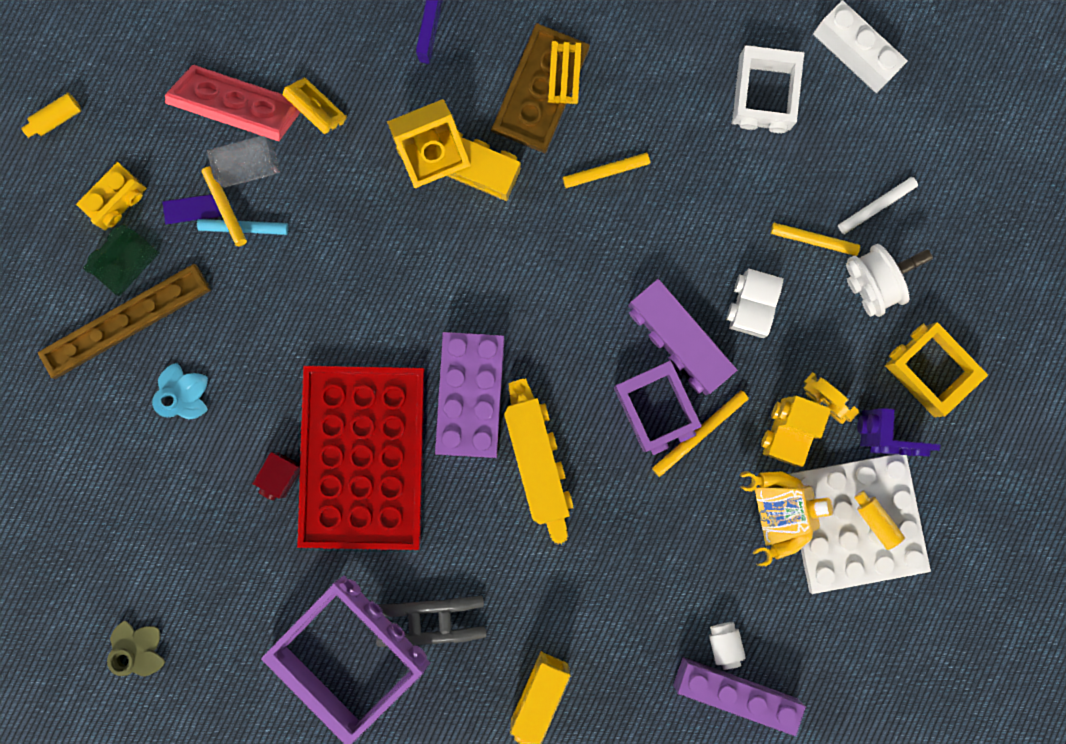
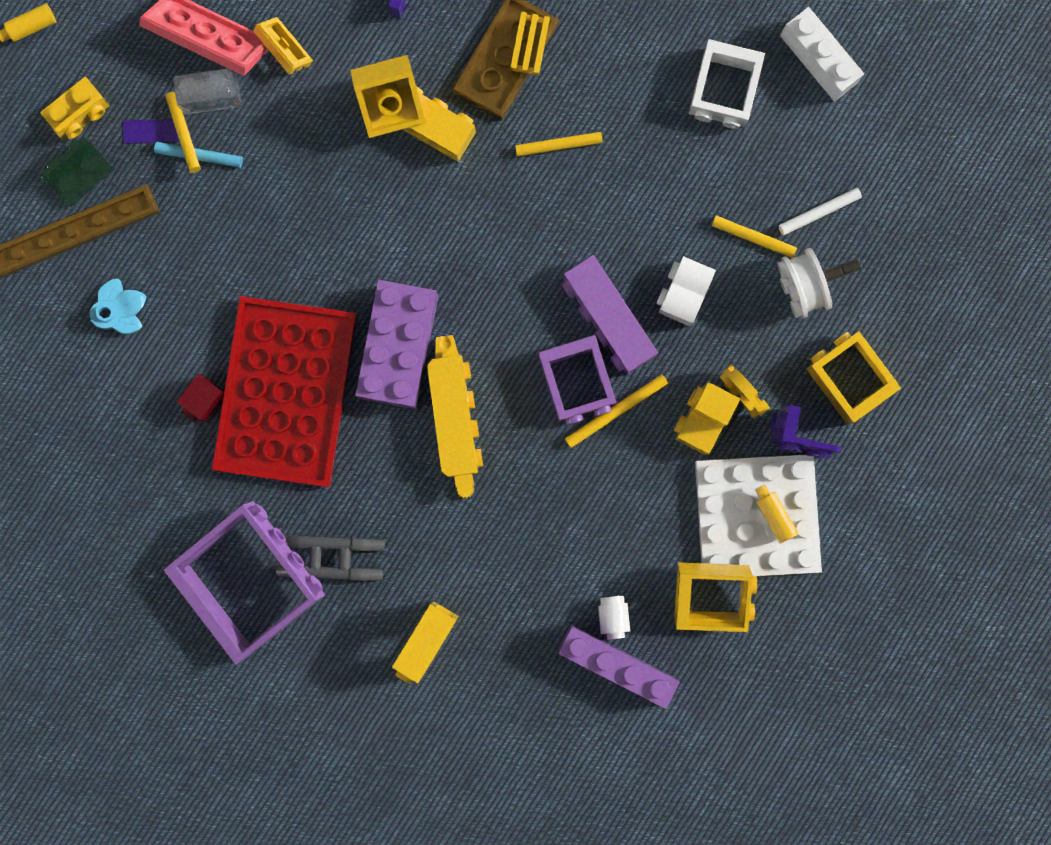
camera: 10 degrees right, 0 degrees up
(138, 647) = (46, 545): olive plate -> none
(786, 512) = (687, 495): yellow torso -> none
(827, 636) = (709, 620): none -> yellow window

